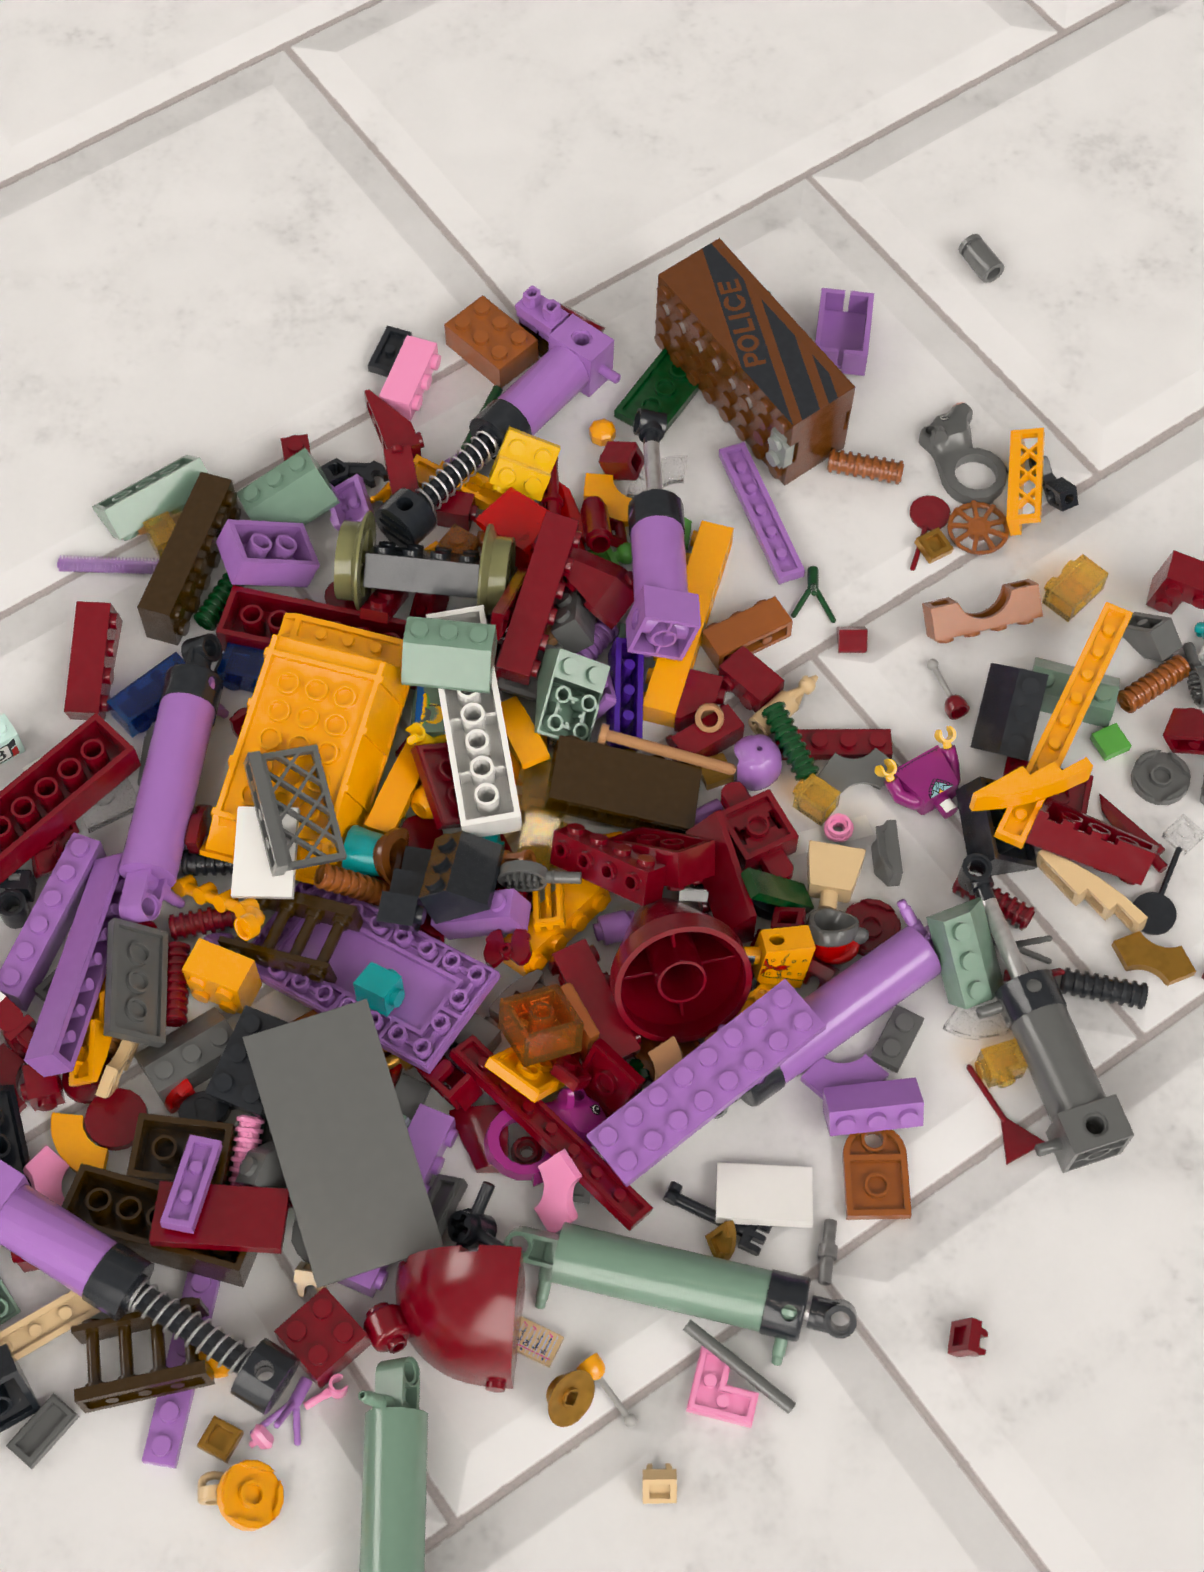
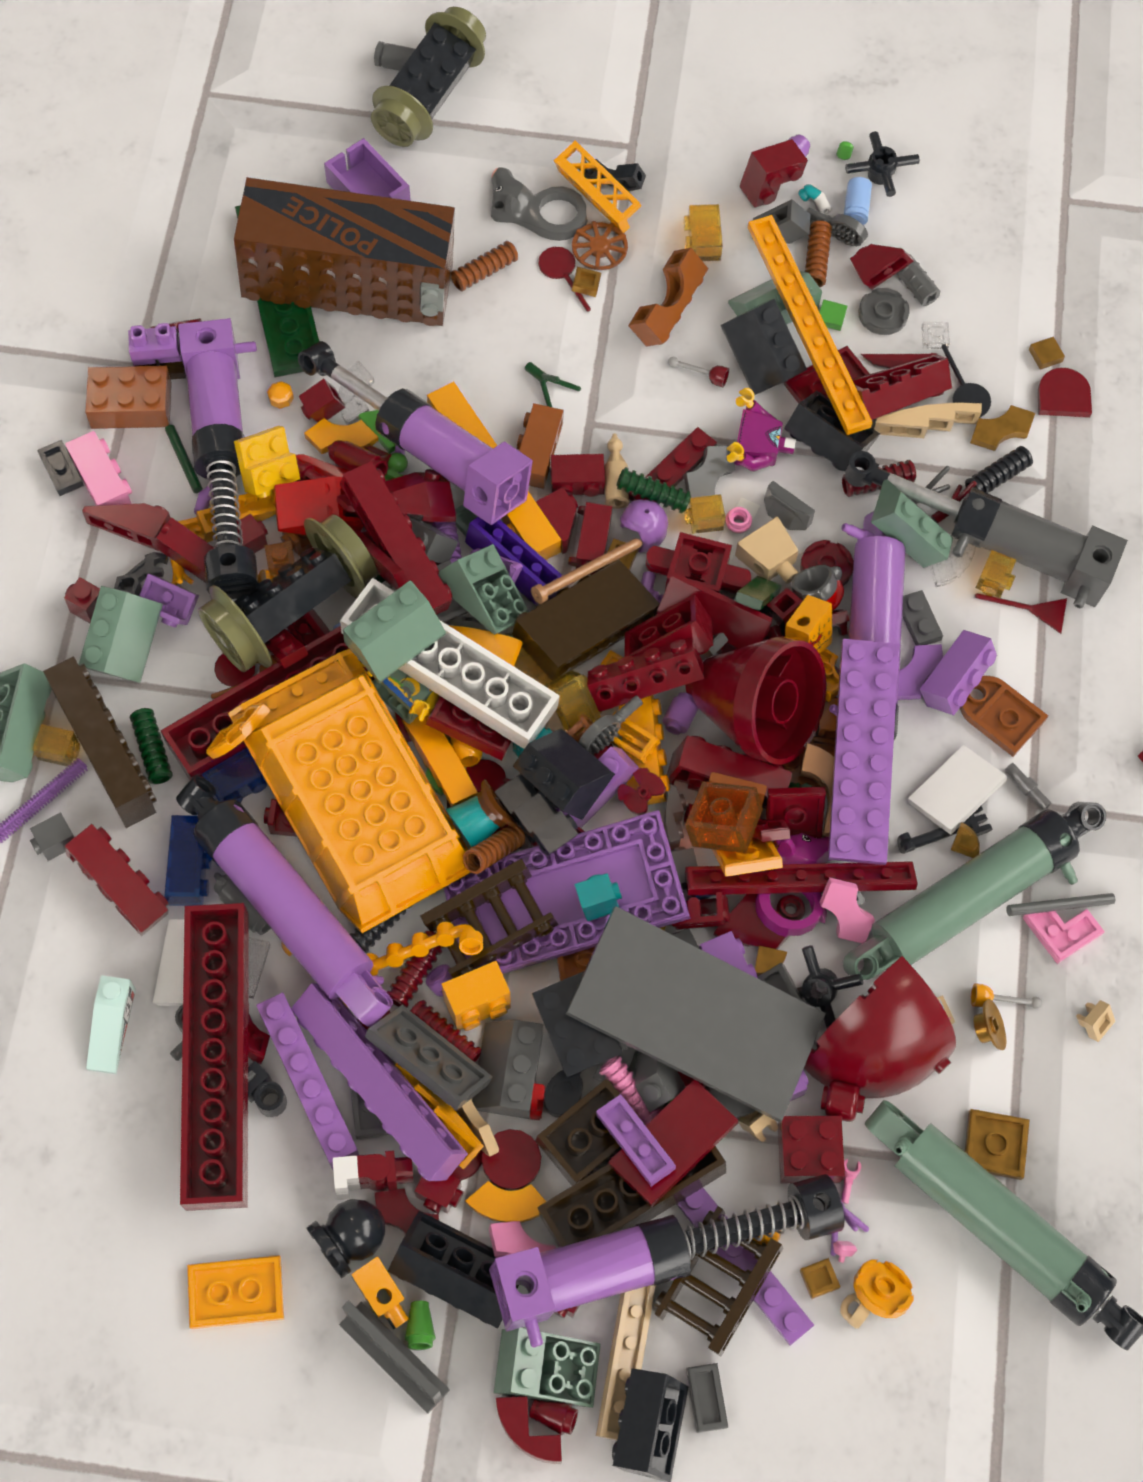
camera: 50 degrees left, 5 degrees up
(90, 590) = (51, 836): none -> dark grey brick
(198, 828) = (341, 915): dark red tile -> none
(251, 866) = (420, 883): white tile -> none
(267, 553) = (156, 686): medium lavender brick -> none
(268, 628) = (238, 731): none -> light orange tile
(268, 814) = (403, 850): dark grey fence -> none
(465, 1169) = (768, 958): none -> pearl gold tile
(468, 1490) = (998, 1142): none -> pearl gold tile
(703, 711) = (578, 521): medium nougat piece -> none
(761, 513) = (452, 356): medium lavender plate -> none
(852, 639) = (606, 389): dark red slope -> none
(982, 288) = (428, 77): none -> brick
(1022, 788) = (839, 383): light orange slope -> none

